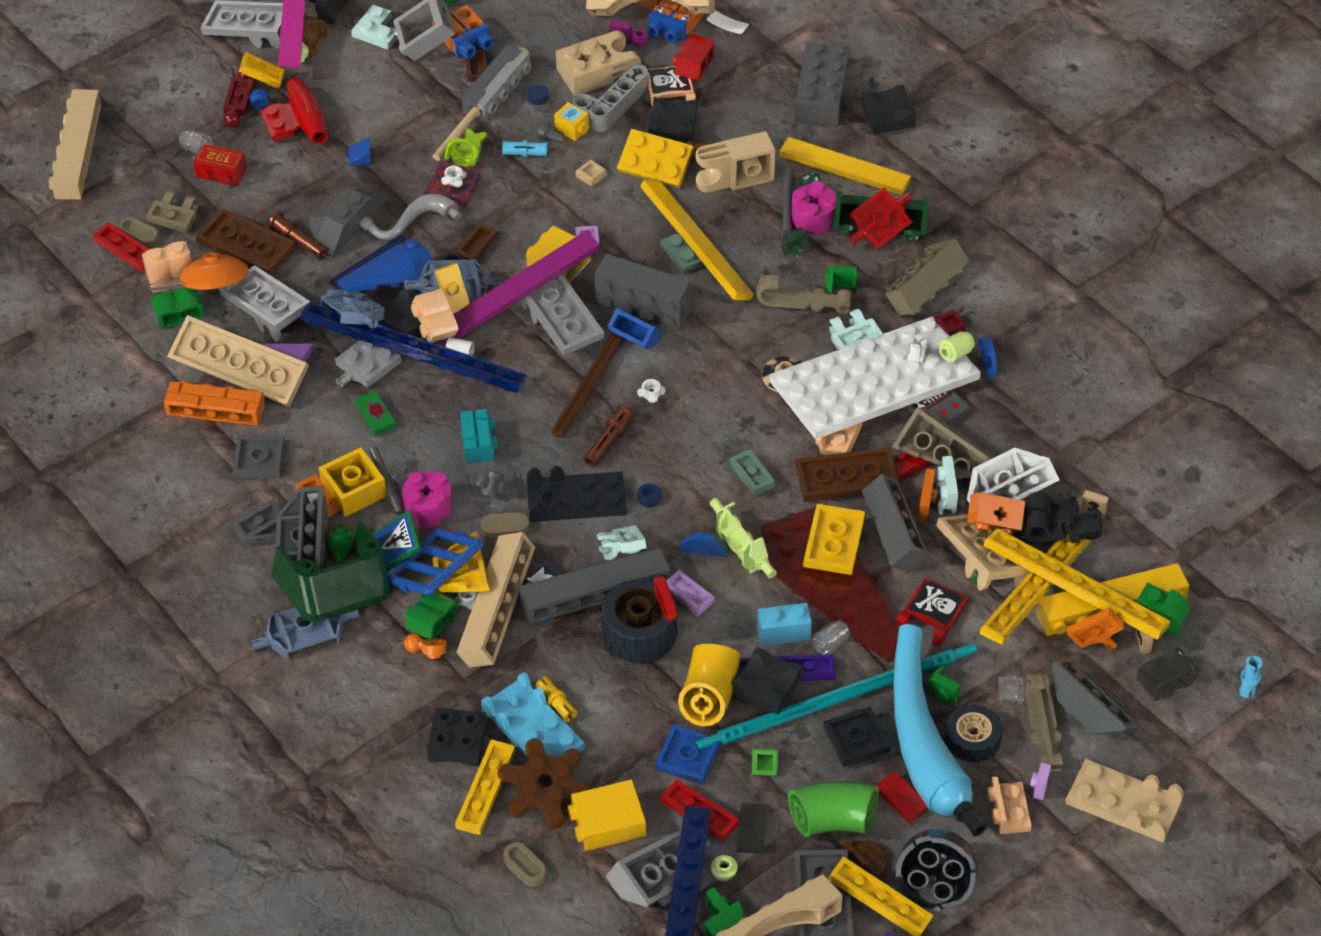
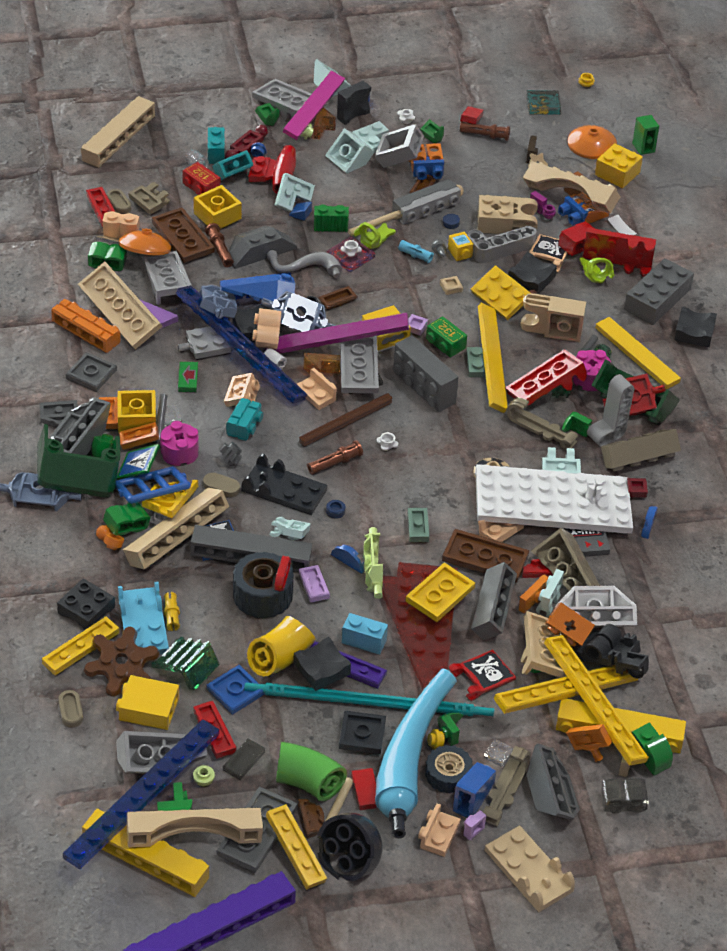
camera: 25 degrees right, 5 degrees down
(207, 113) = (216, 144): none -> teal brick
(236, 47) = (268, 114): none -> green plate
(246, 130) = (233, 165): none -> teal brick
(261, 70) = (272, 132): yellow plate -> none
(266, 191) = (217, 207): none -> yellow brick
(336, 132) = (290, 189): none -> light aqua plate
(367, 58) = (349, 152): none -> light aqua slope
(375, 508) = (139, 435): none -> orange plate
(404, 149) = (331, 218): none -> green brick
(449, 401) = (242, 387): none -> light nougat bracket
(452, 284) = (292, 315): yellow plate -> none
(513, 332) = (322, 362): none -> clear orange slope
(534, 361) = (319, 389): none -> light nougat bracket
(628, 746) = (190, 659): none -> clear green plate
(631, 237) = (446, 336): none -> green brick
(634, 329) = (404, 397): blue brick -> none
(735, 90) = (594, 273): none -> lime hair
(751, 51) = (620, 249): none -> red hinge
(764, 762) = (285, 719): bright green slope -> none
(776, 238) = (548, 376): none -> red hinge
(830, 637) = (392, 657): clear brick -> none
(880, 248) = (615, 413): none -> light grey beam
(886, 832) = (340, 798): none -> tan bar
(938, 706) = (435, 739): none -> yellow plate
(956, 346) = (624, 501): yellowish green brick -> none
(1017, 743) = (473, 789): none -> blue slope
(1094, 501) = (655, 654): tan tile -> none
(1250, 676) = (684, 825): medium azure pin -> none

